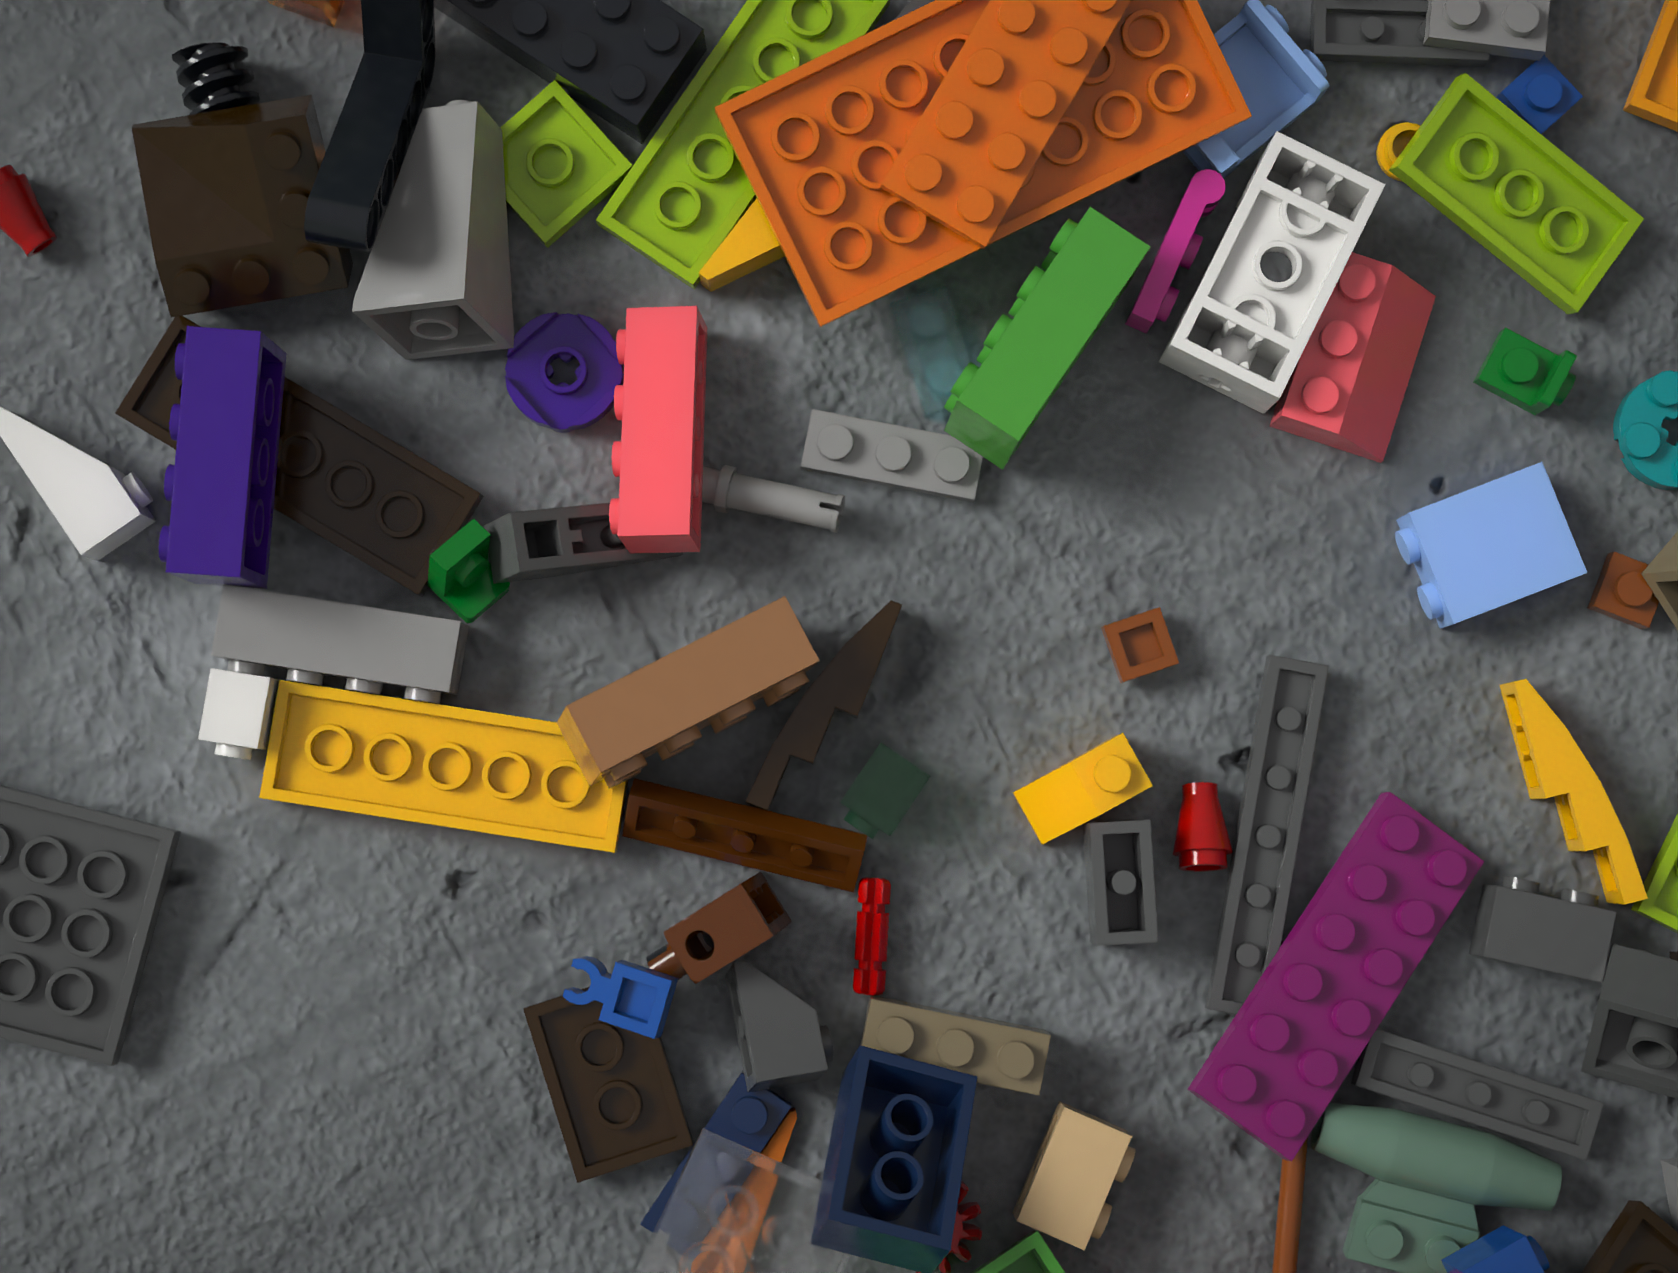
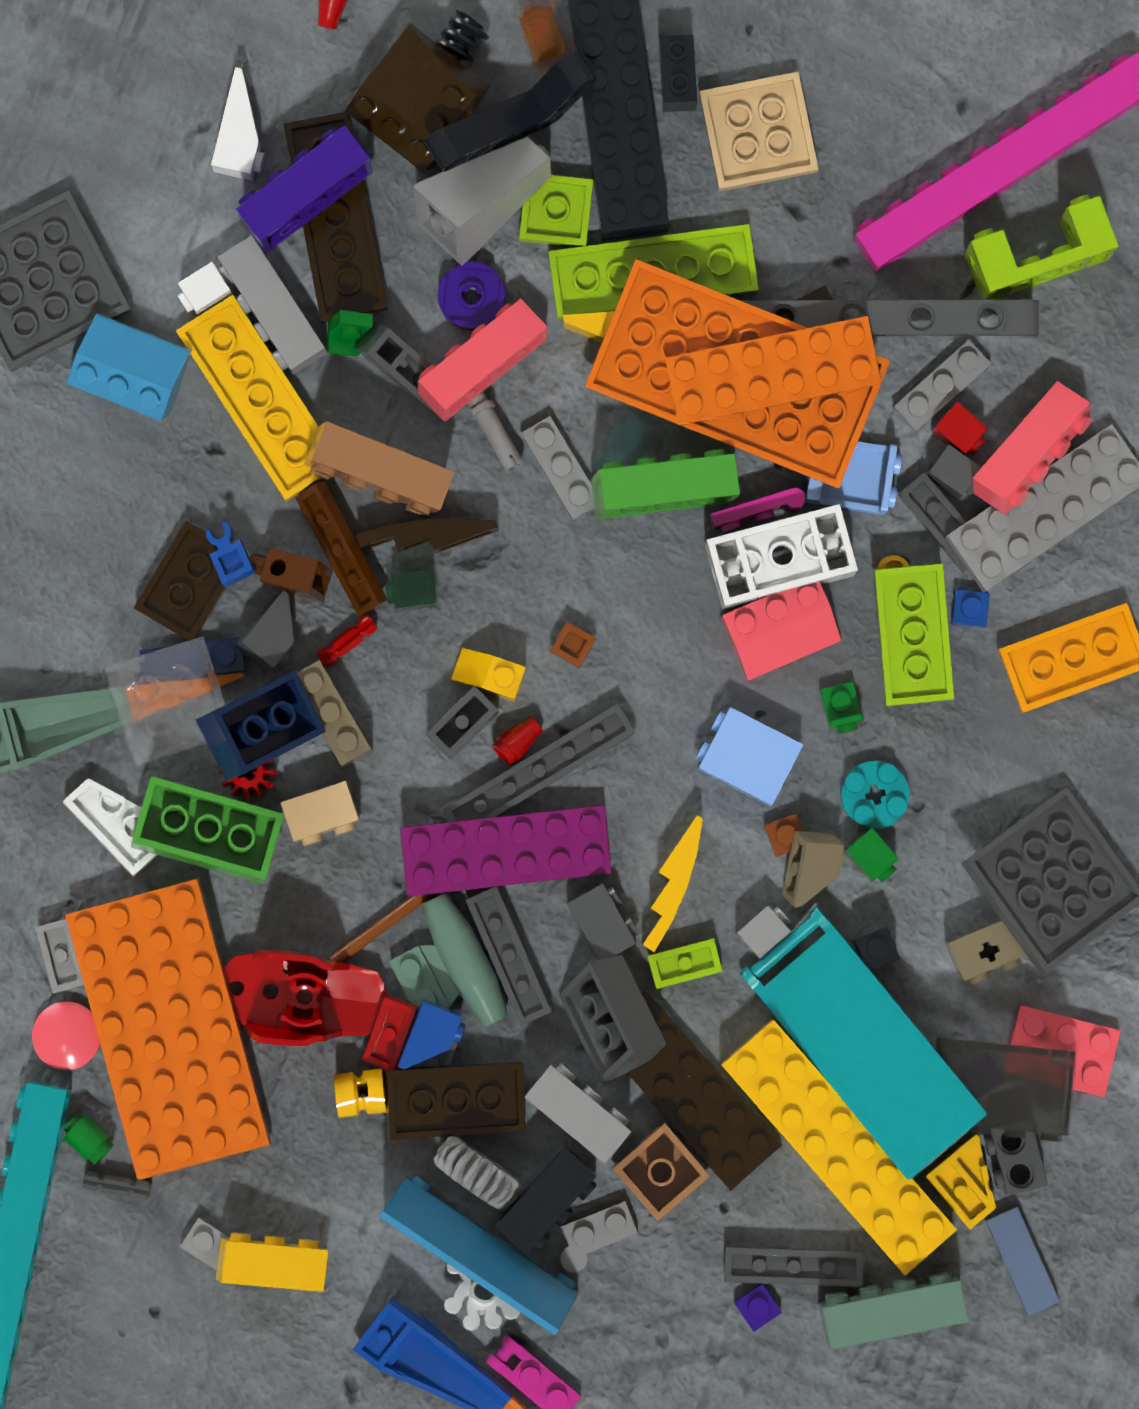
camera: 50 degrees right, 0 degrees up
(252, 903) = (129, 367): none -> dark azure slope

